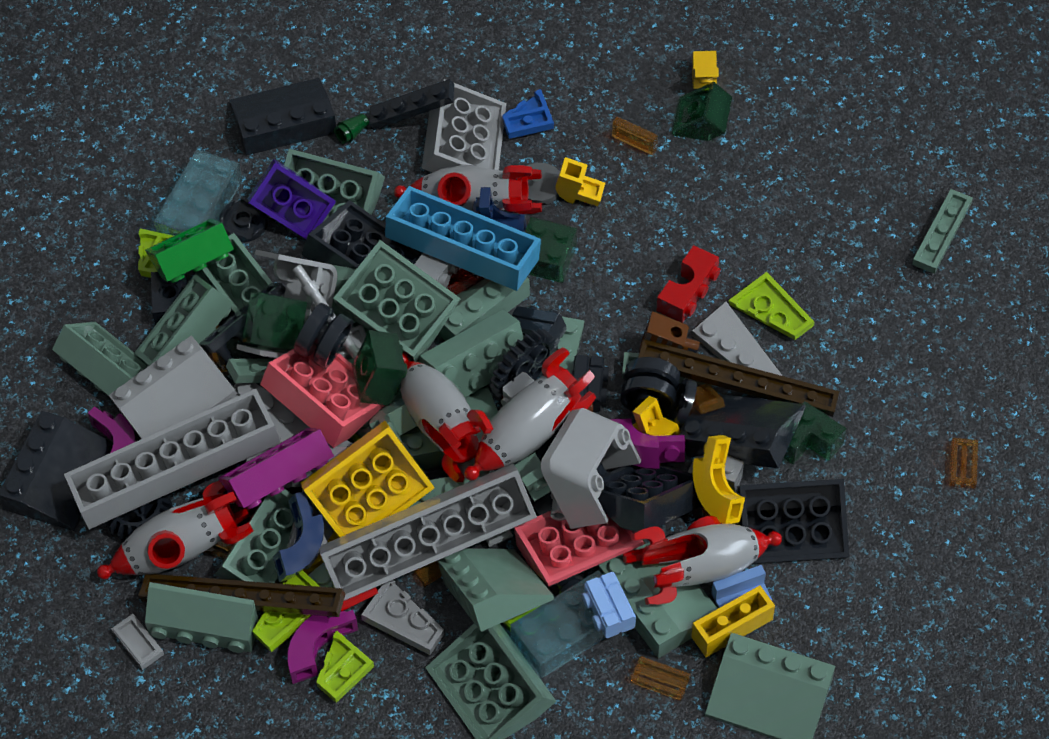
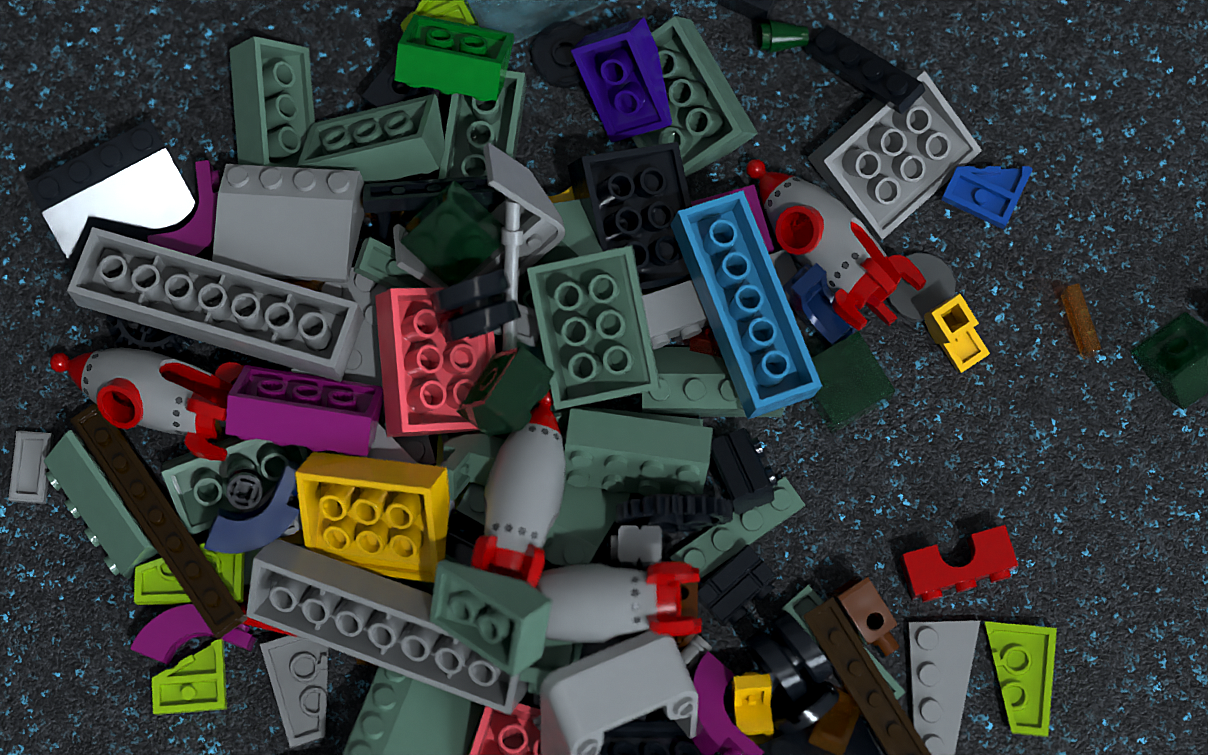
camera: 45 degrees right, 20 degrees up
(273, 540) = (242, 481): none -> black wheel
(480, 457) = (491, 615): none -> sand green slope

